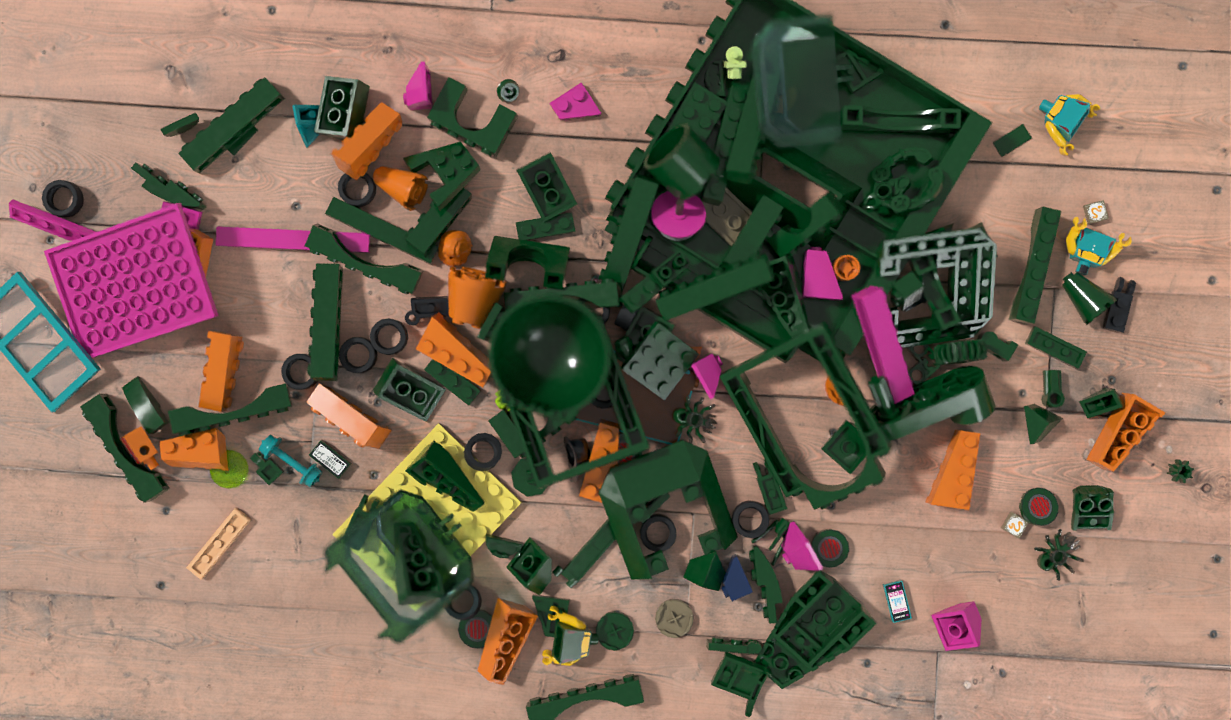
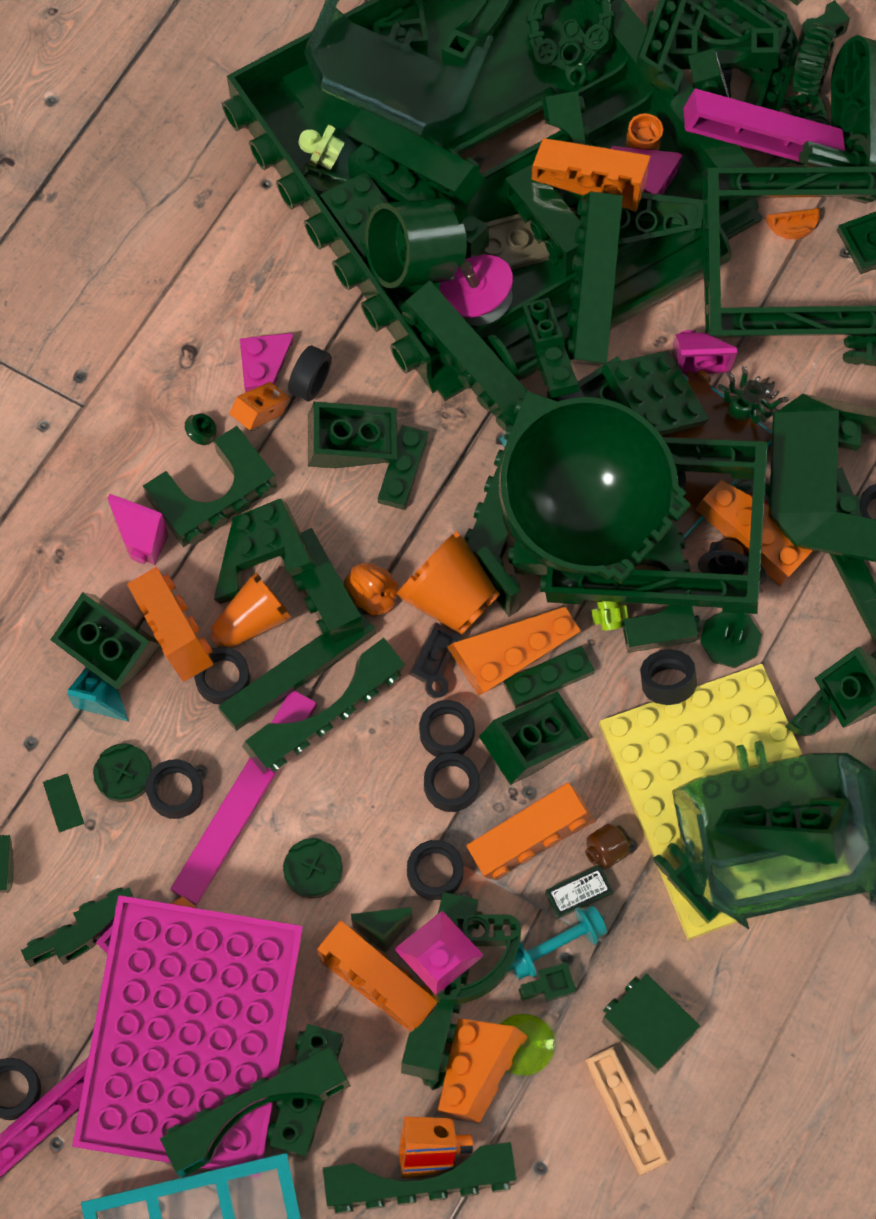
camera: 60 degrees left, 20 degrees down
(135, 365) = (197, 1141): none -> dark green arch
(140, 363) = (300, 1117): none -> dark green brick
(144, 406) = (369, 1115): dark green slope -> none
(231, 125) = (43, 800): dark green brick -> none
(238, 400) = (439, 952): none -> dark pink slope
(251, 357) = (382, 926): none -> dark green slope
(251, 405) = (490, 981): none -> dark green beam
(260, 197) = (166, 768): none -> black tyre
(270, 300) = (312, 868): none -> dark green tile
(271, 535) = (649, 1022): none -> dark green brick
(272, 162) = (122, 772): none -> dark green tile
(326, 322) = (386, 795): dark green brick -> none
(363, 463) = (607, 845): none -> reddish brown head
(440, 470) = (673, 738): dark green wedge -> none
(507, 251) = (415, 521): dark green arch -> none
(537, 119) = (259, 406): none -> orange piece
(574, 139) = (309, 373): none -> black tyre
(788, 248) = (592, 168): none -> orange wedge

